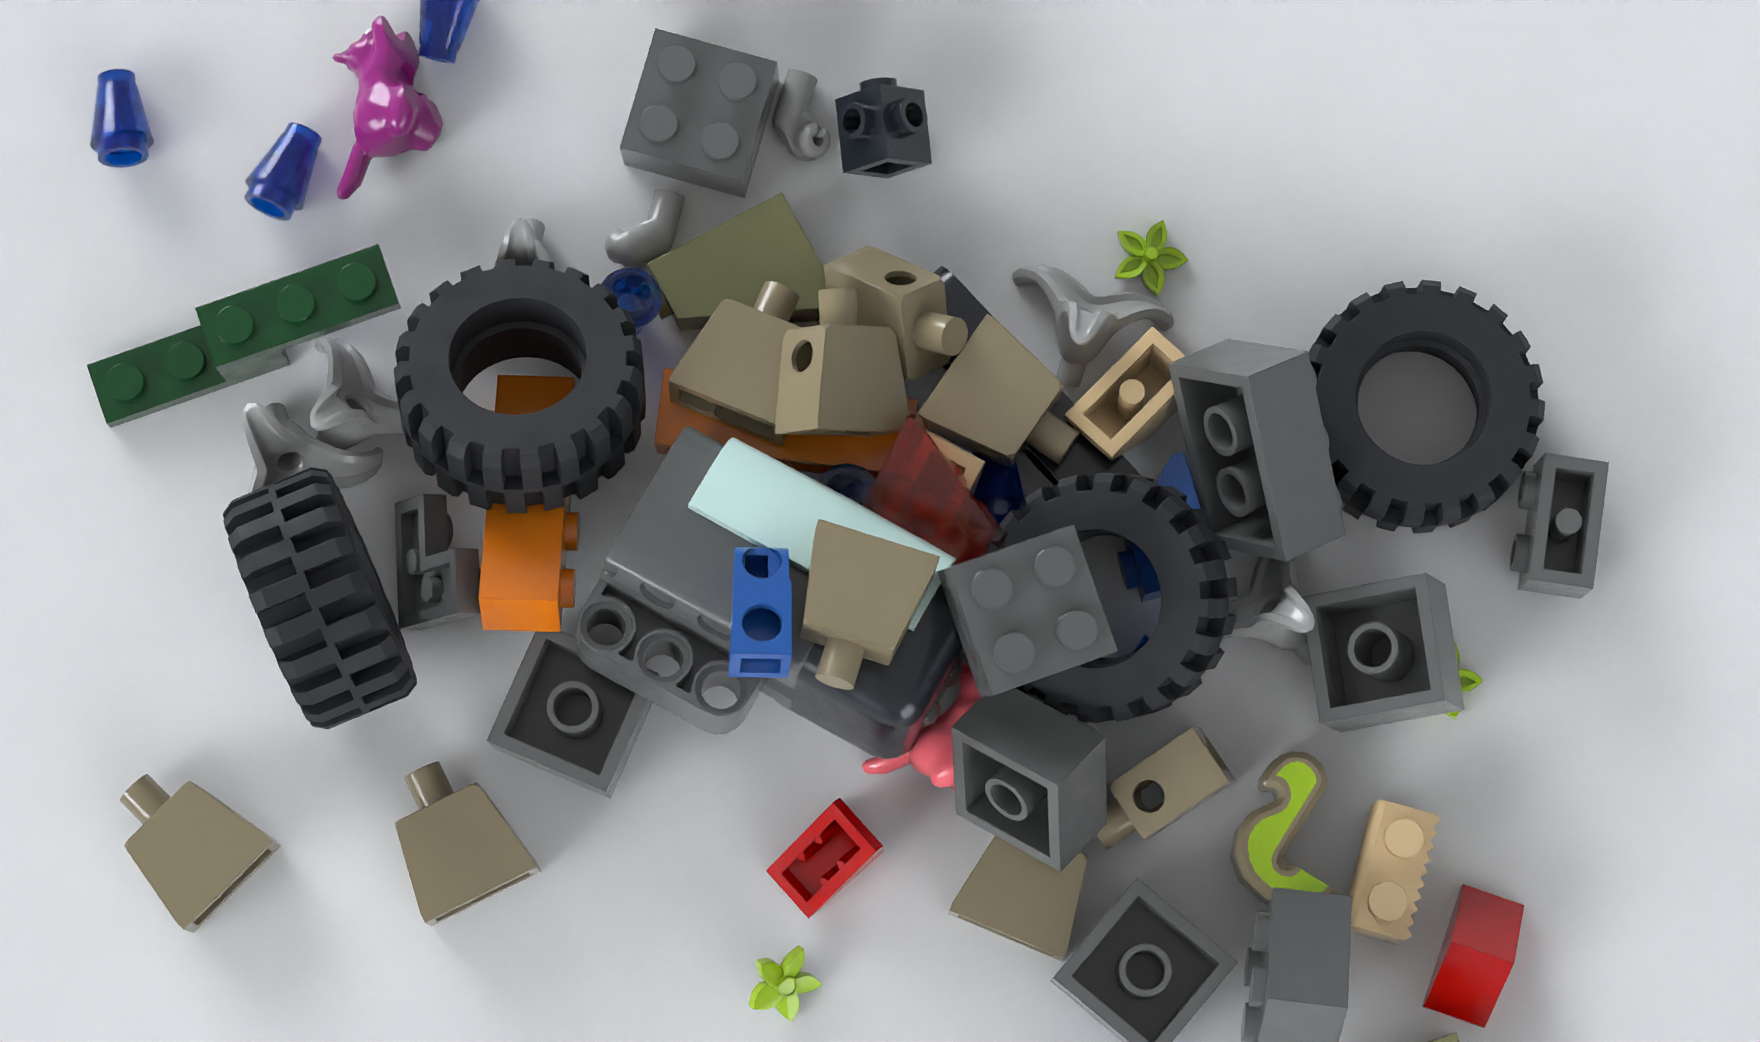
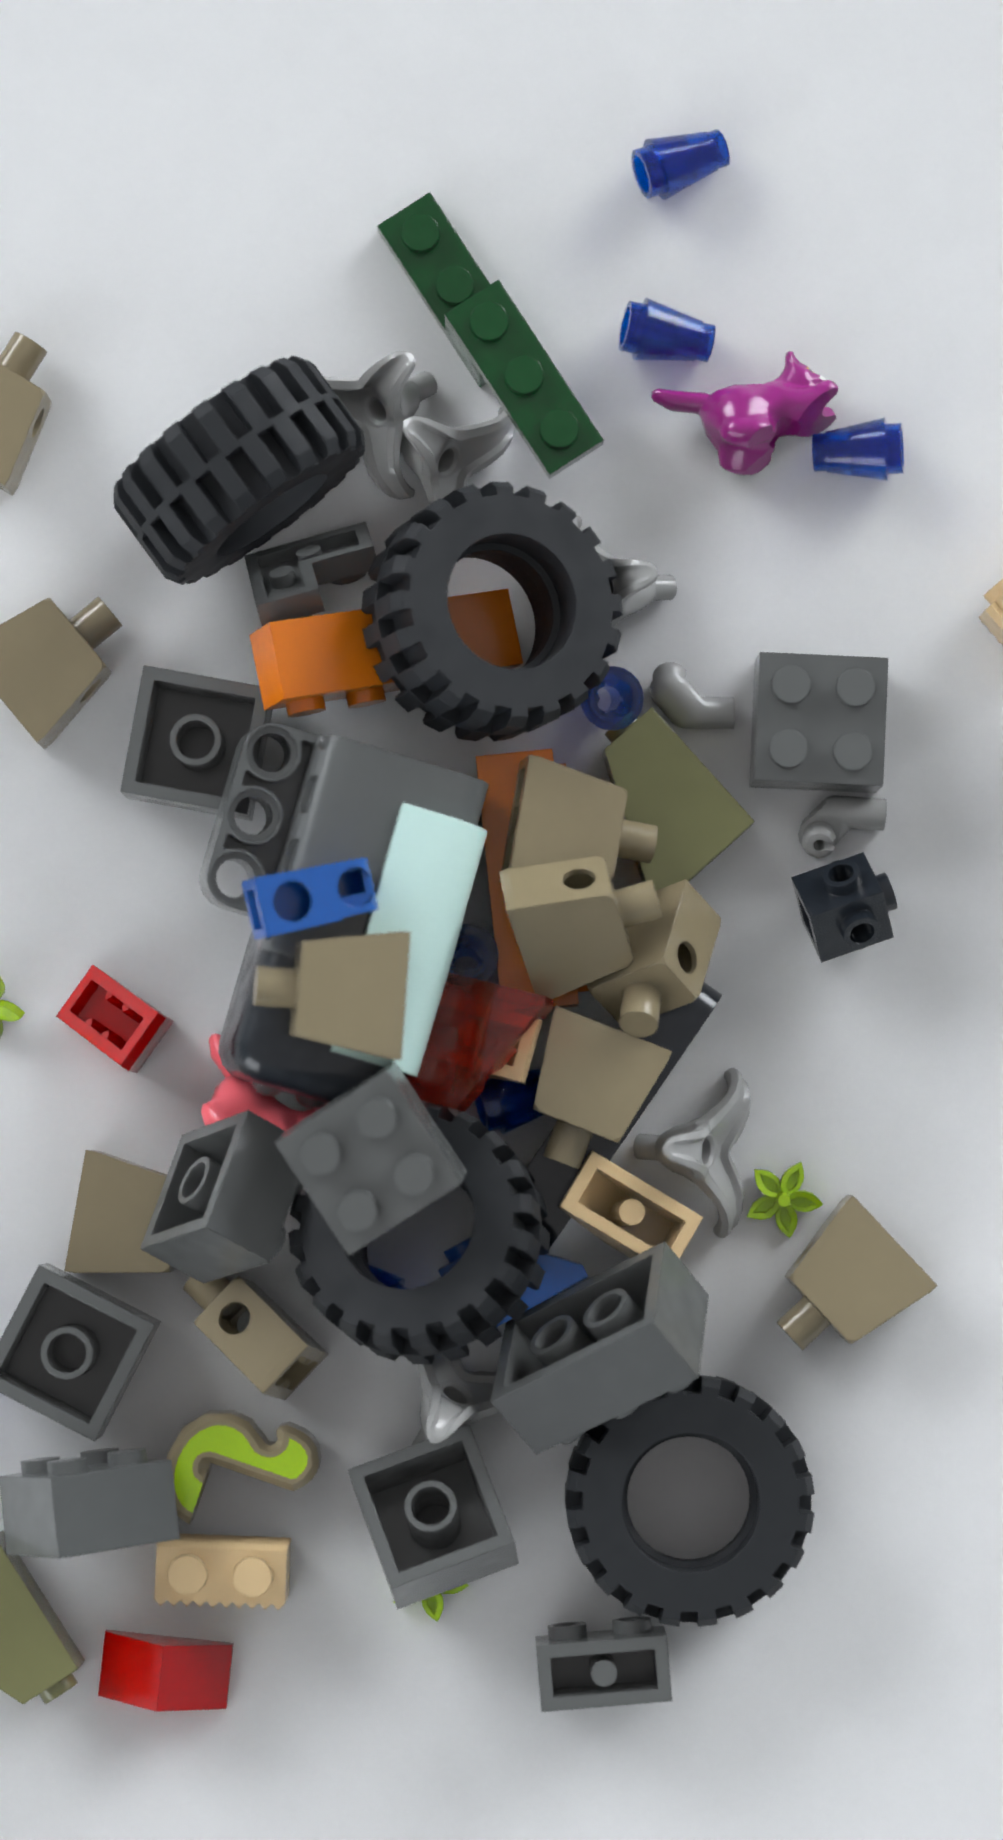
camera: 75 degrees right, 5 degrees up
(1239, 207) = (851, 1278): none -> dark tan torso

